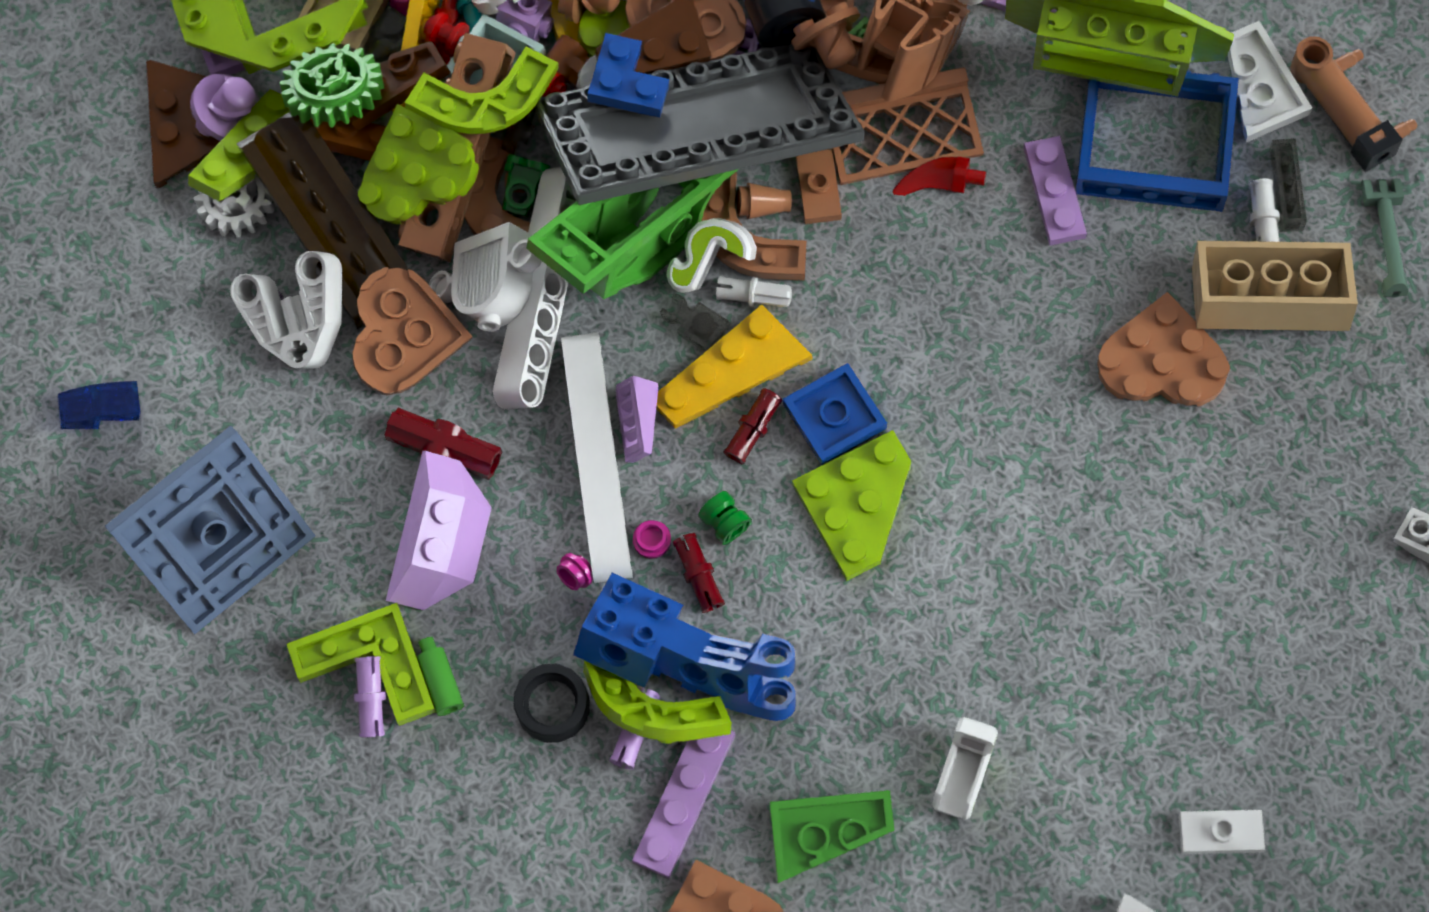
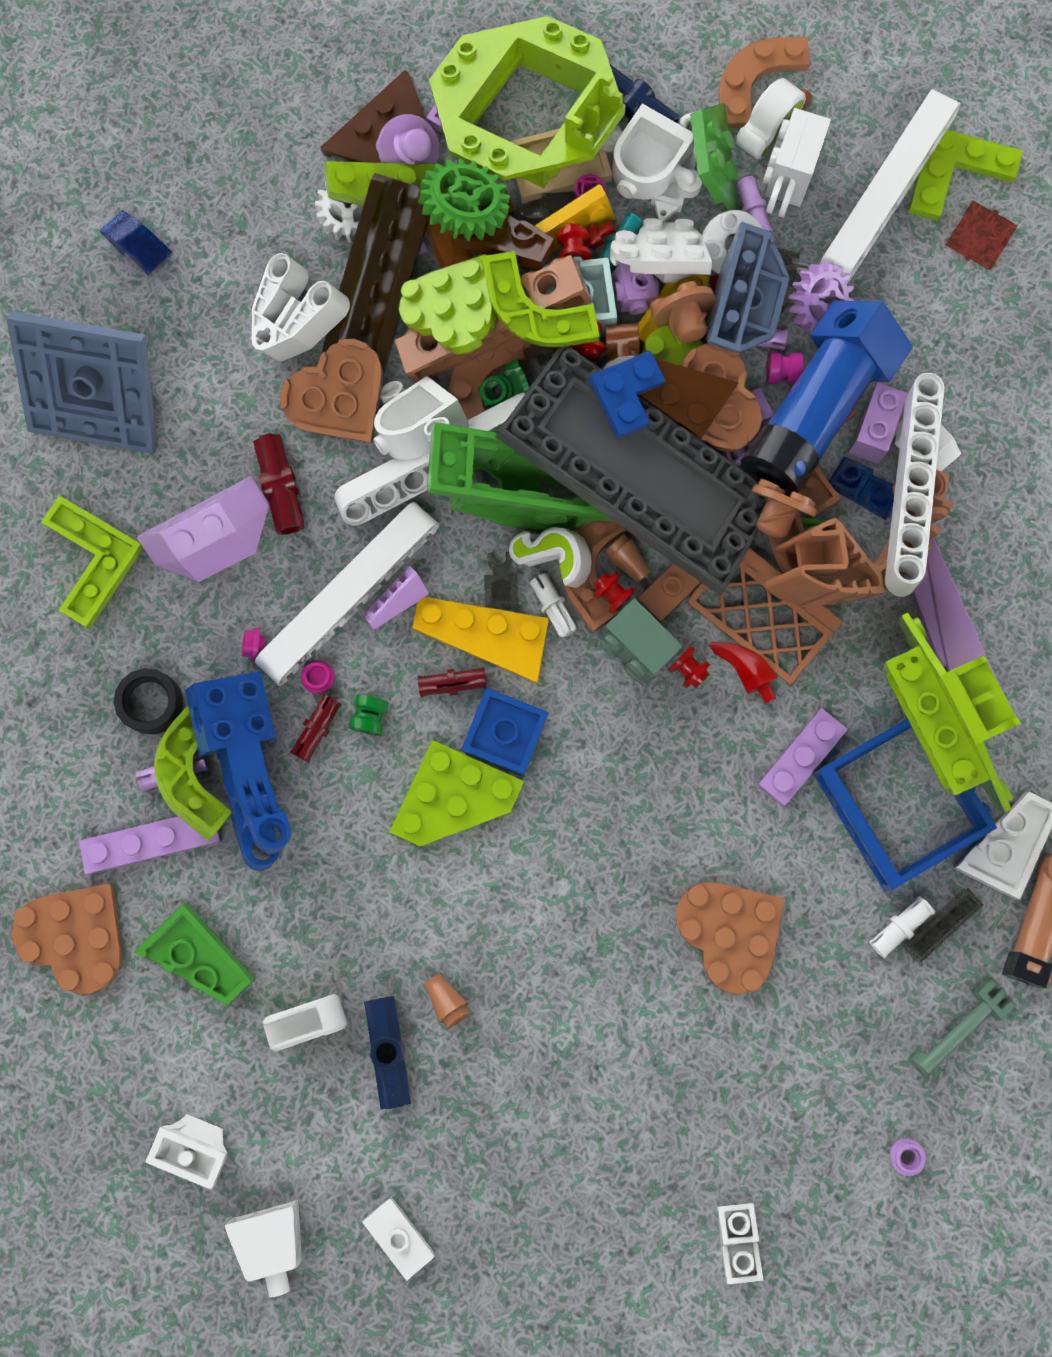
camera: 45 degrees right, 10 degrees up
(369, 696) = (62, 578): lavender pin -> none
(439, 678) = (112, 612): bright green cylinder -> none
(847, 235) = (641, 639): none -> sand green brick
(1039, 636) = (446, 1001): none -> nougat cone
(1071, 729) = (390, 1075): none -> dark blue piece
(1274, 285) = (847, 977): tan brick -> none

